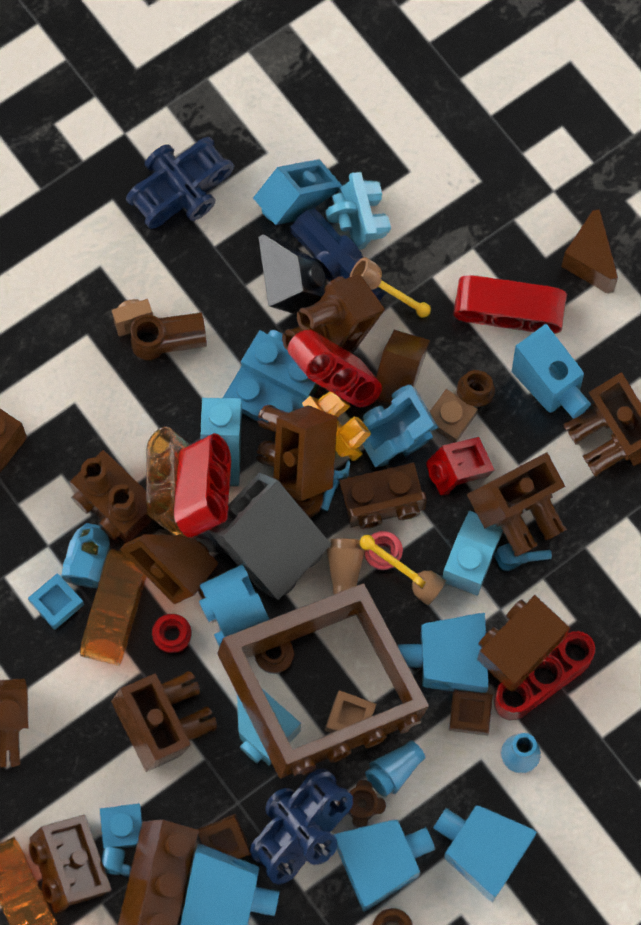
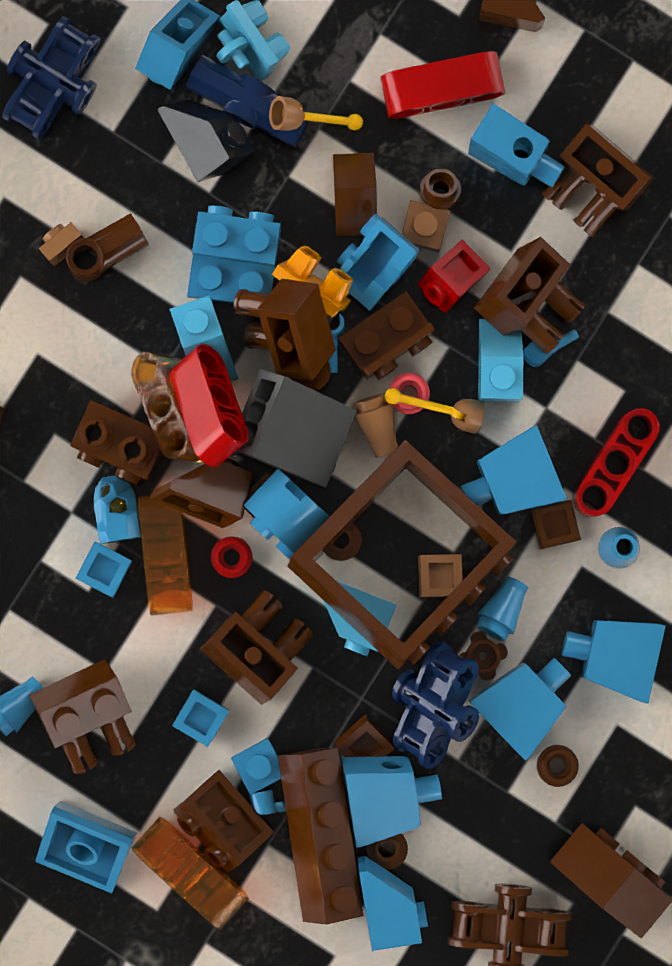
camera: 20 degrees left, 15 degrees up
(87, 762) = (201, 717): none -> dark azure plate
(334, 368) = (293, 229): red beam -> none
(342, 314) = (273, 173): reddish brown brick -> none
(521, 642) = (587, 445): reddish brown brick -> none

